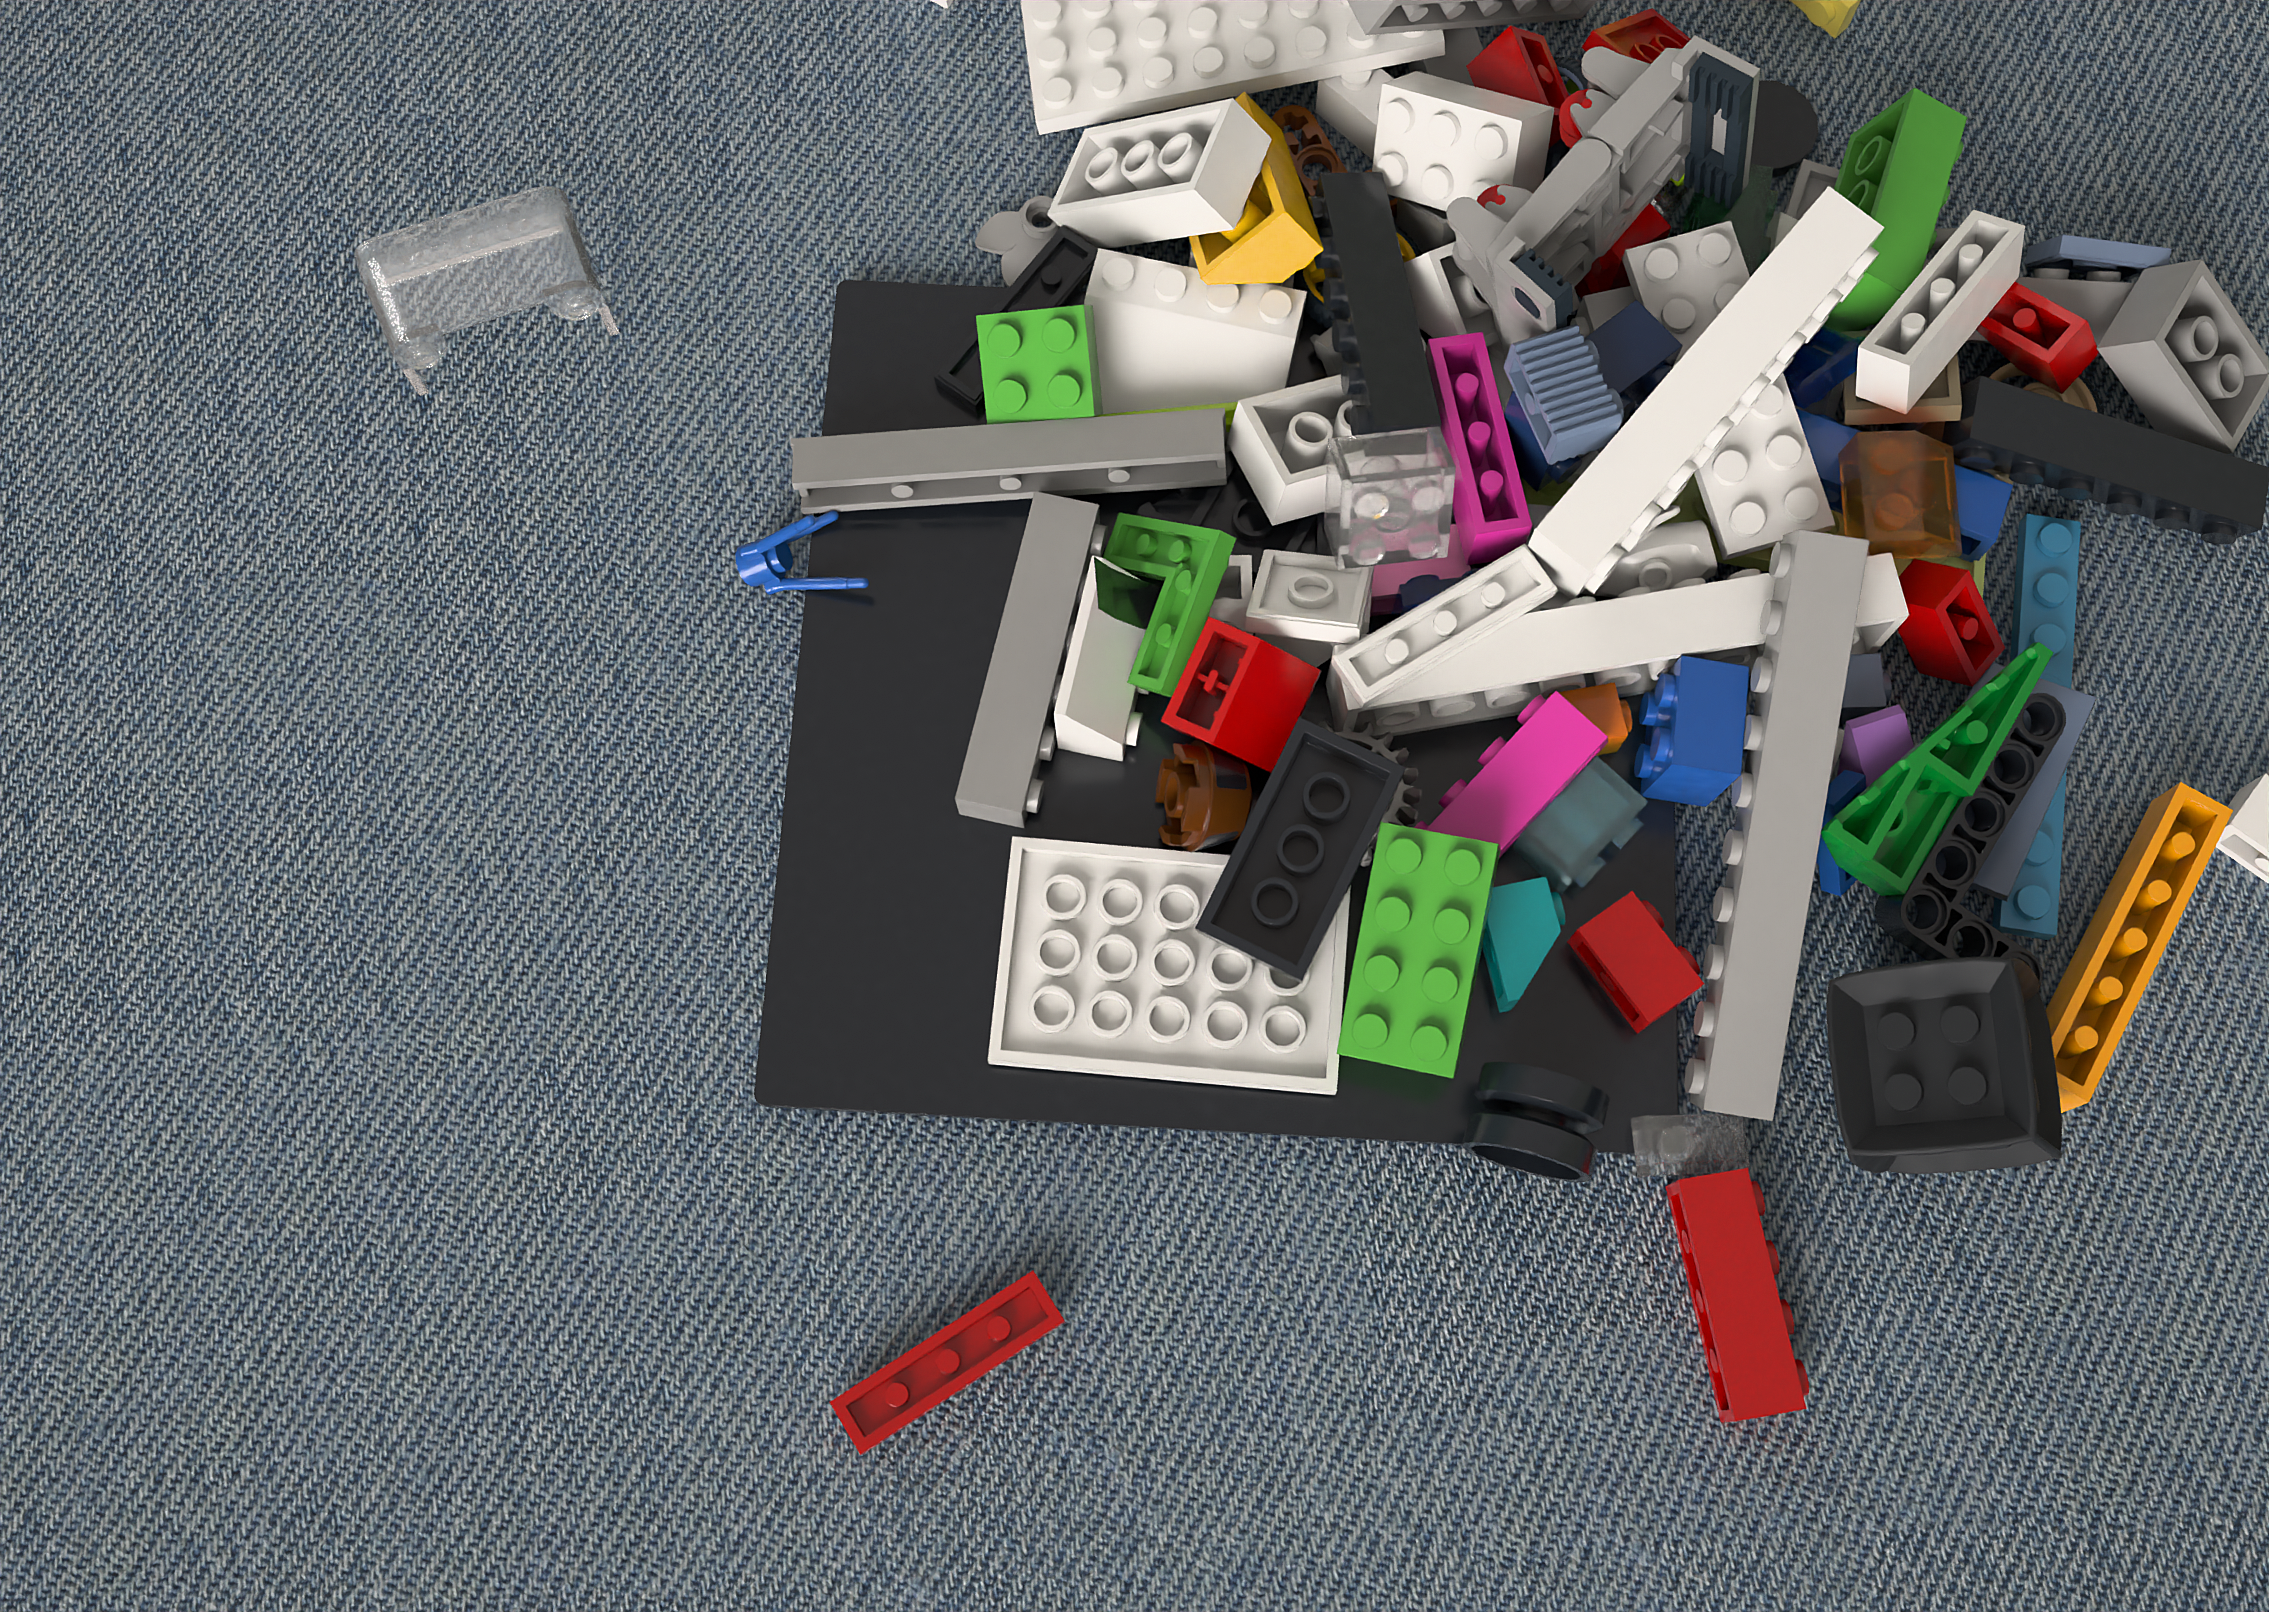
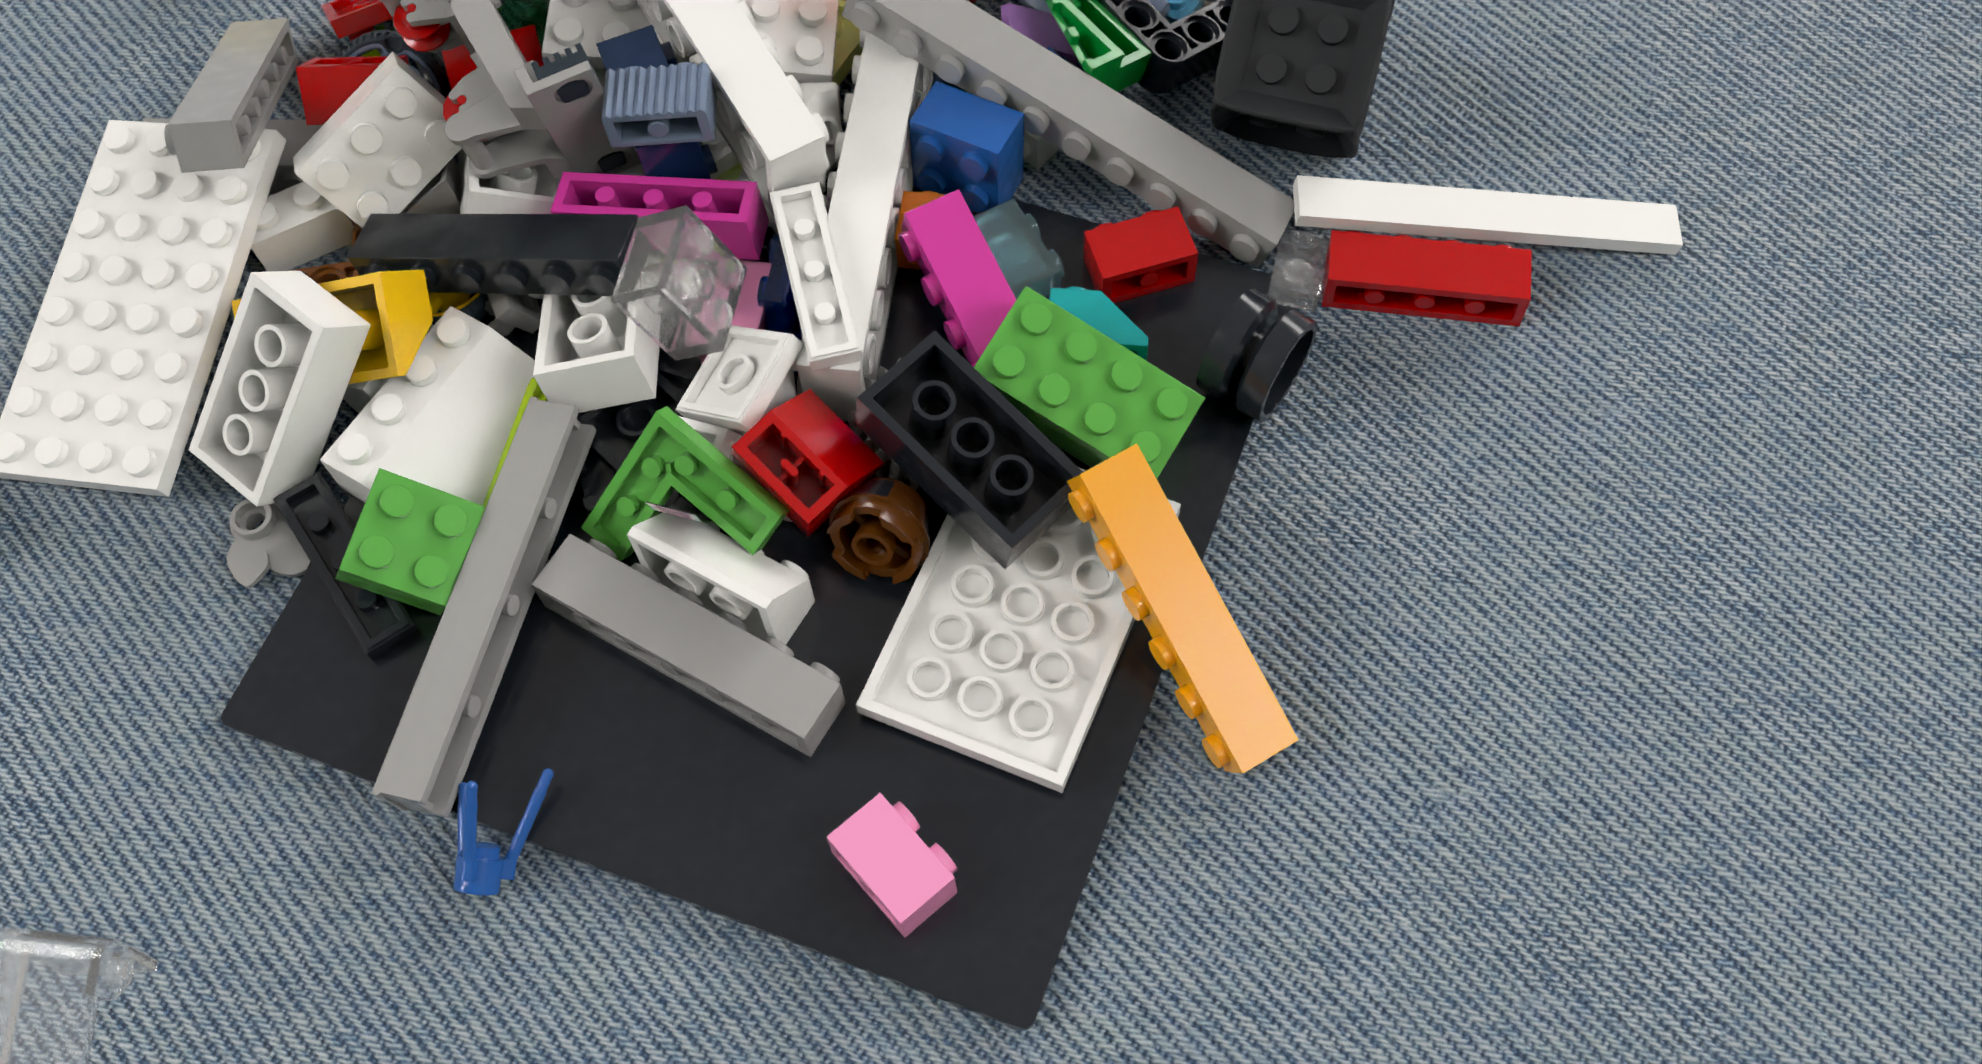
camera: 70 degrees left, 10 degrees down
(866, 925) = (894, 863): none -> bright pink brick
(947, 1362) = (1331, 914): red plate -> none
(1197, 1119) = (1181, 611): none -> light orange brick
(1846, 1354) = (1486, 215): none -> white tile

